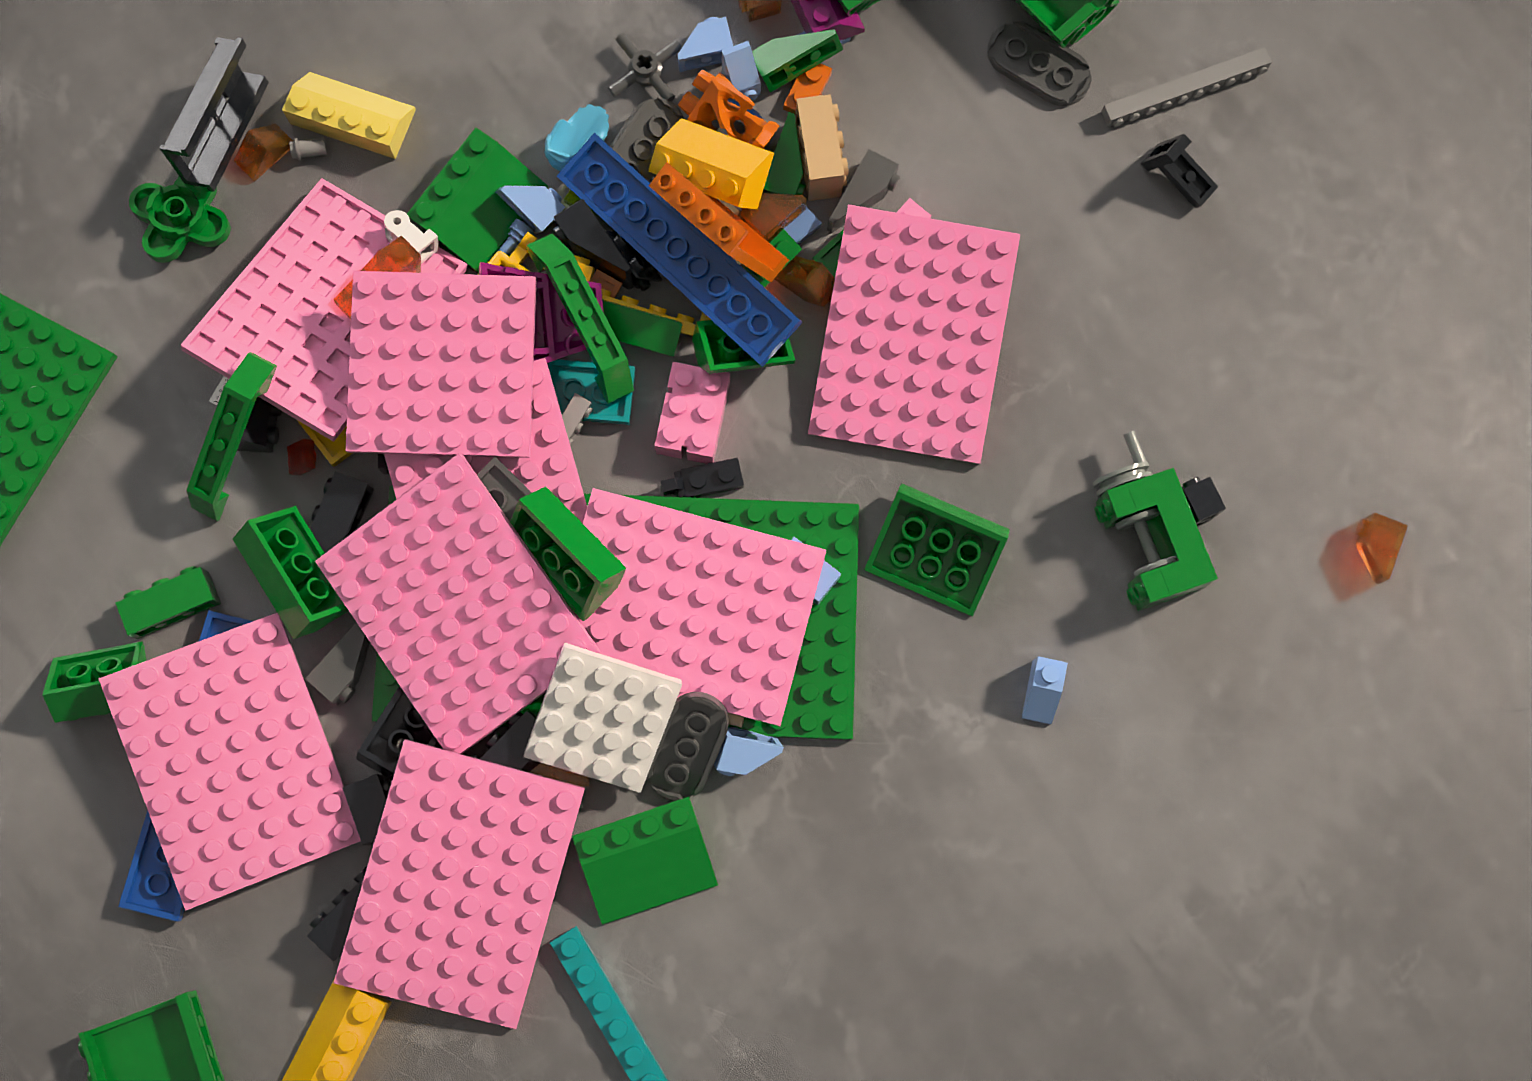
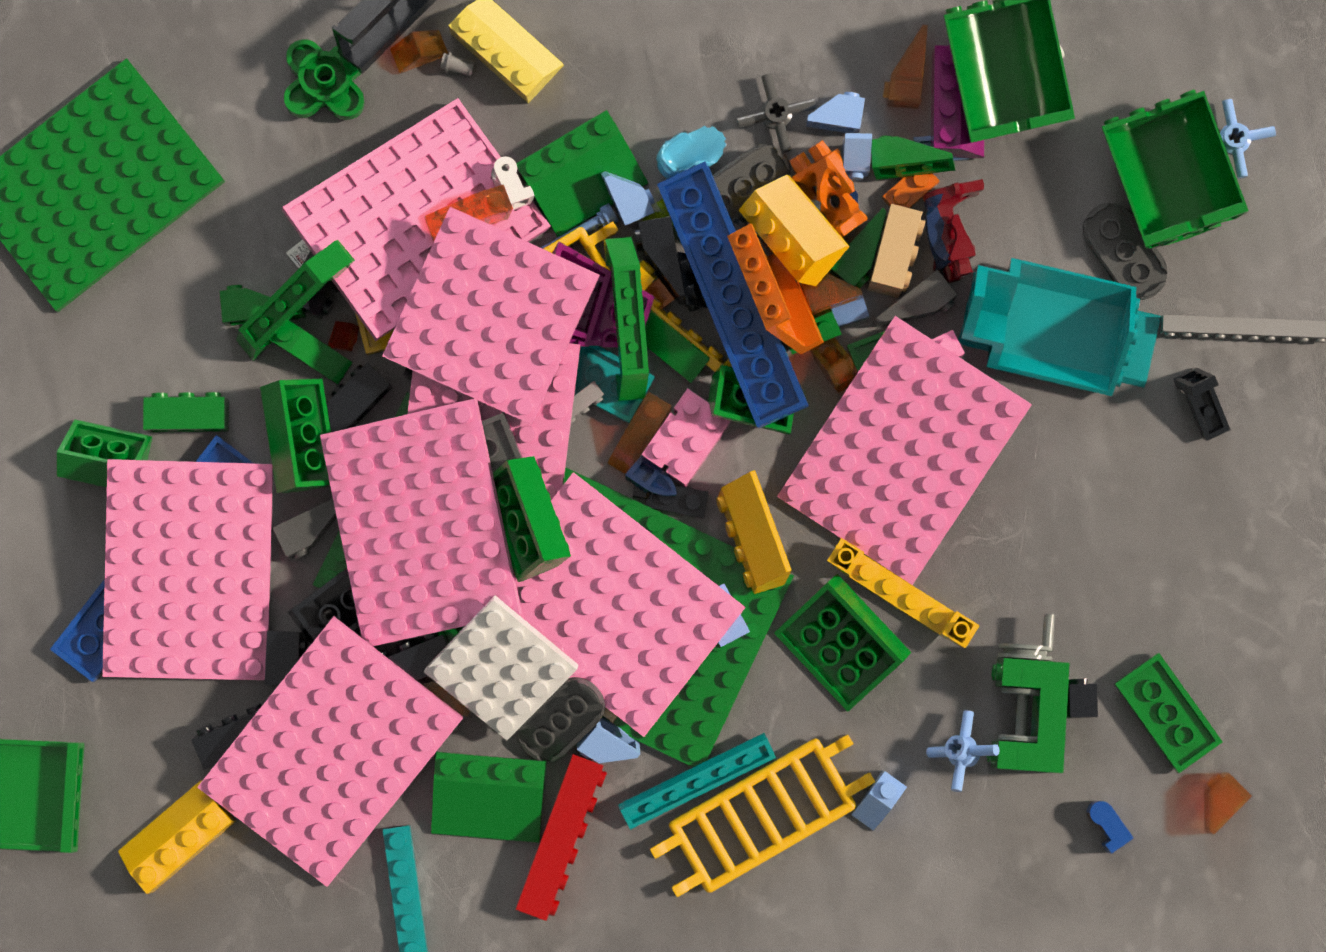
camera: 30 degrees right, 5 degrees up
(177, 466) = (241, 303): none -> green slope
(272, 486) = (311, 352): none -> green slope
(643, 428) = (639, 432): none -> clear orange slope
(671, 466) = (650, 478): none -> dark blue plate
(738, 870) = (560, 836): none -> red brick
(802, 475) = (754, 533): none -> yellow slope
(852, 751) = (697, 781): none -> teal plate
(863, 108) = (945, 231): none -> dark red hips
(963, 779) = (722, 799): none -> yellow bar
(975, 478) = (902, 594): none -> yellow slope
(1009, 156) = (1059, 326): none -> teal panel
(1106, 603) = (962, 751): none -> light blue bar
(1281, 615) = (1110, 824): none -> blue leg
(1286, 482) = (1168, 713): none -> green plate

